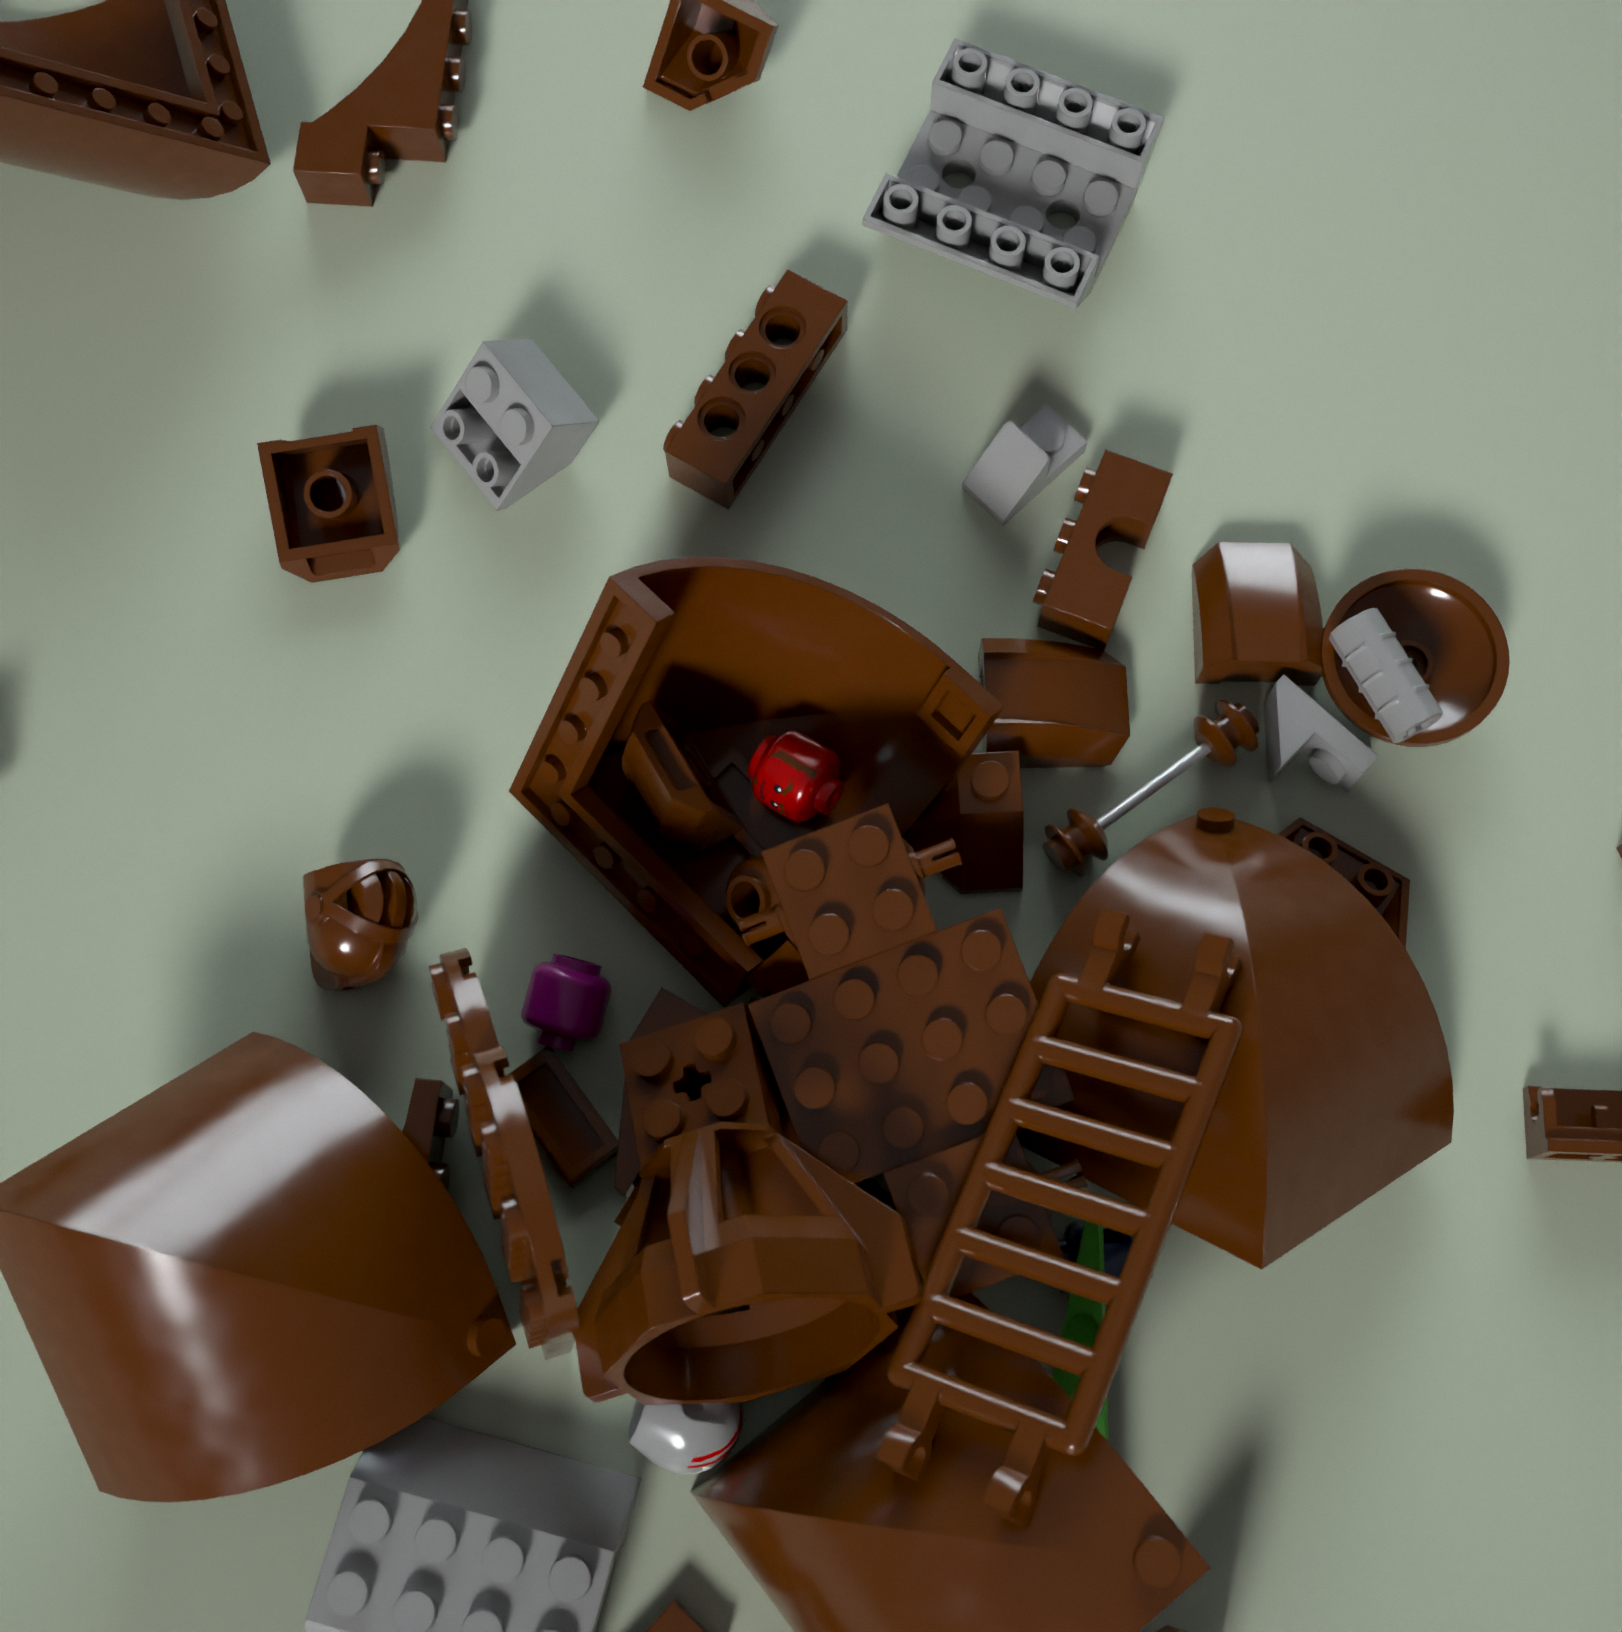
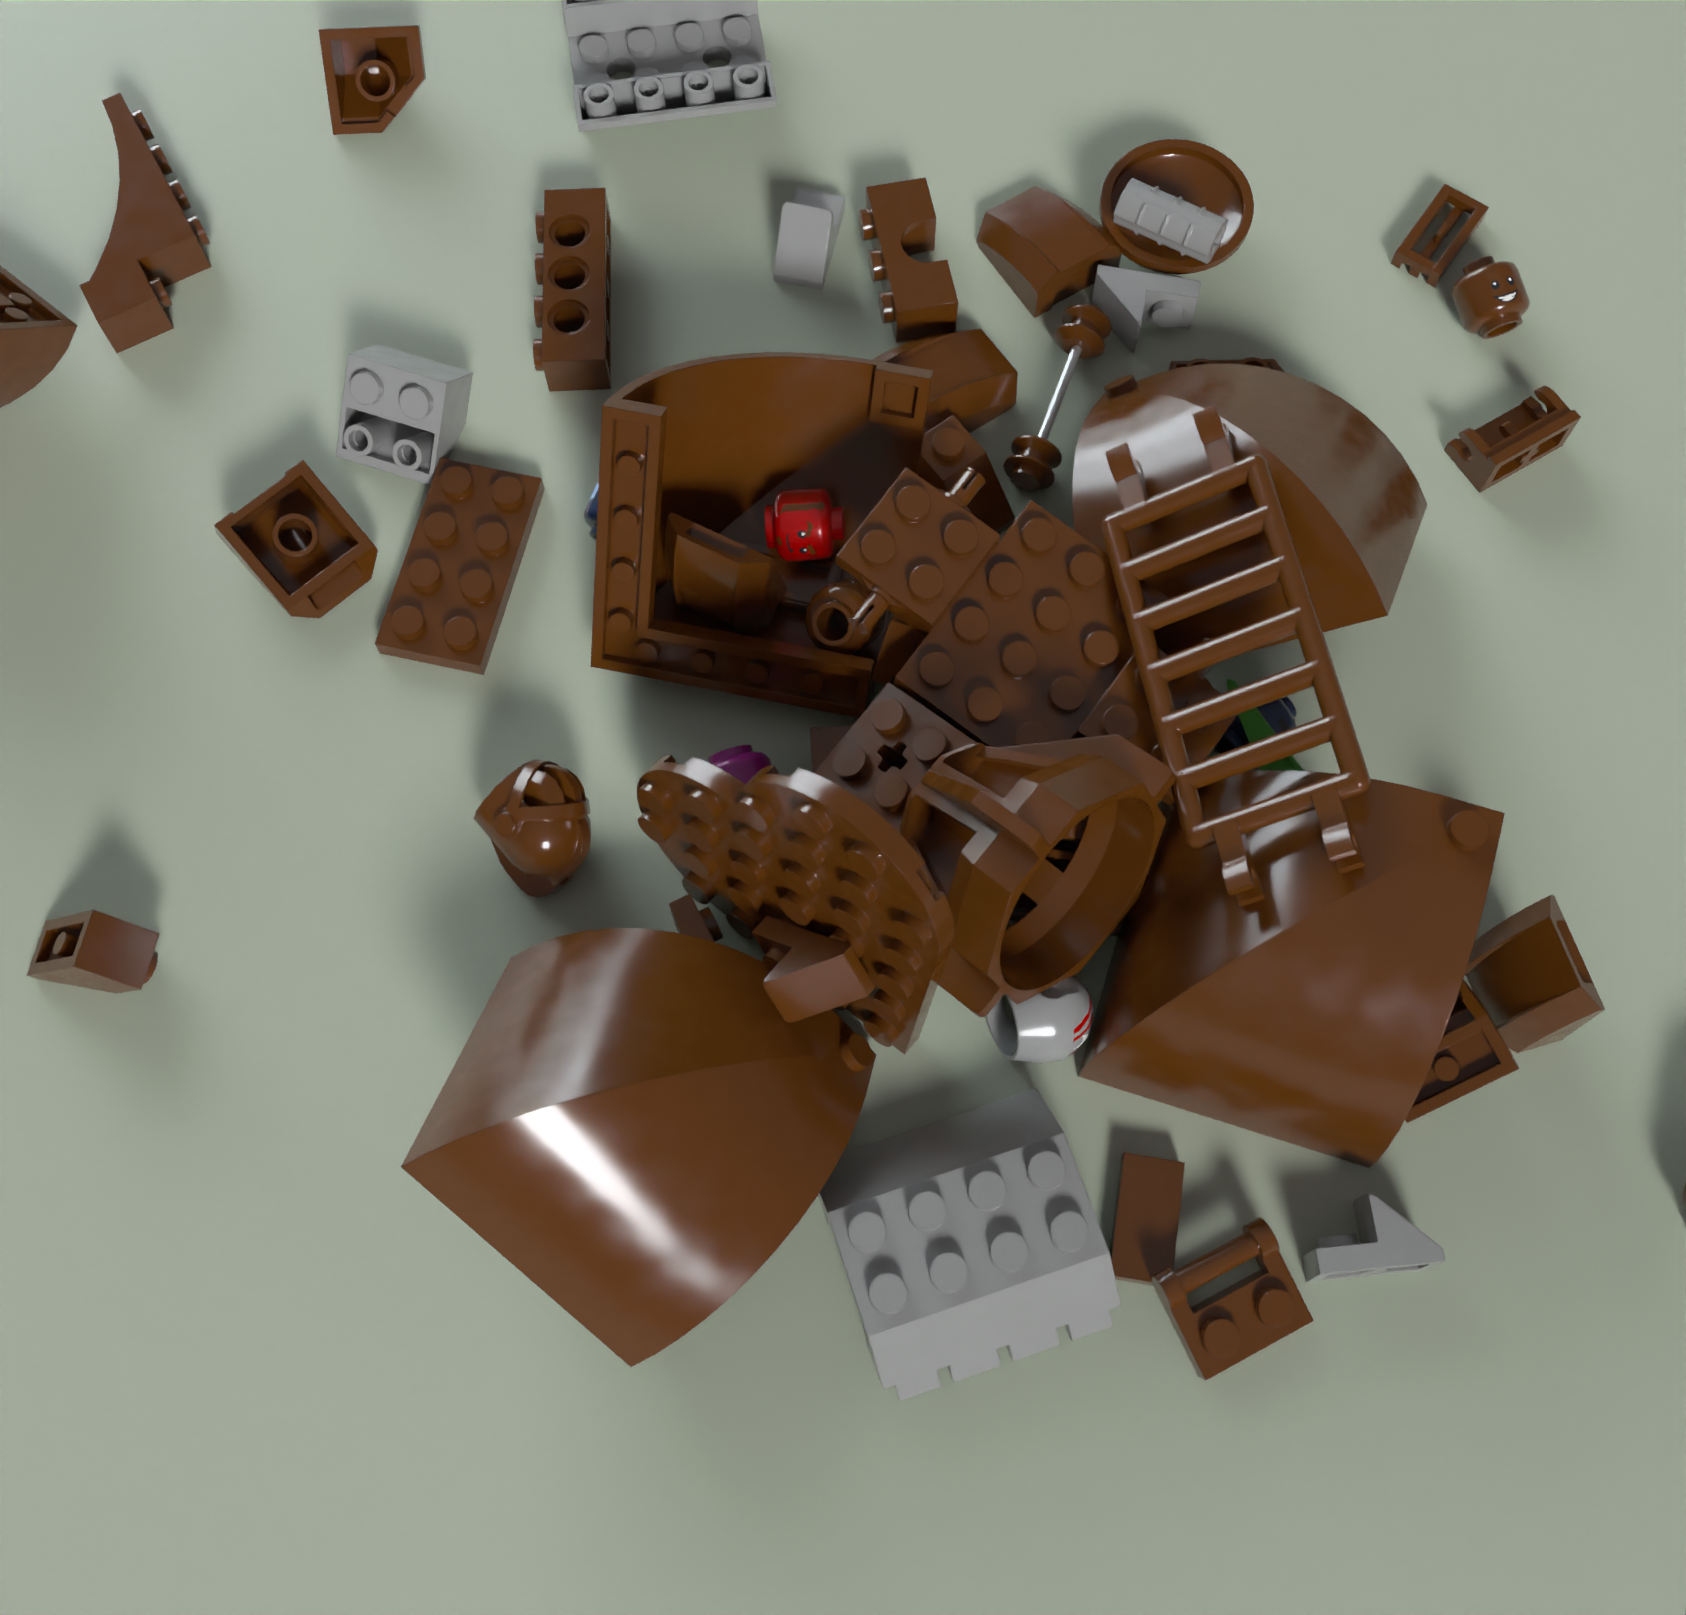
camera: 35 degrees left, 5 degrees down
(468, 1247) = (808, 970): none -> reddish brown slope
(469, 609) = (460, 566): none -> reddish brown plate

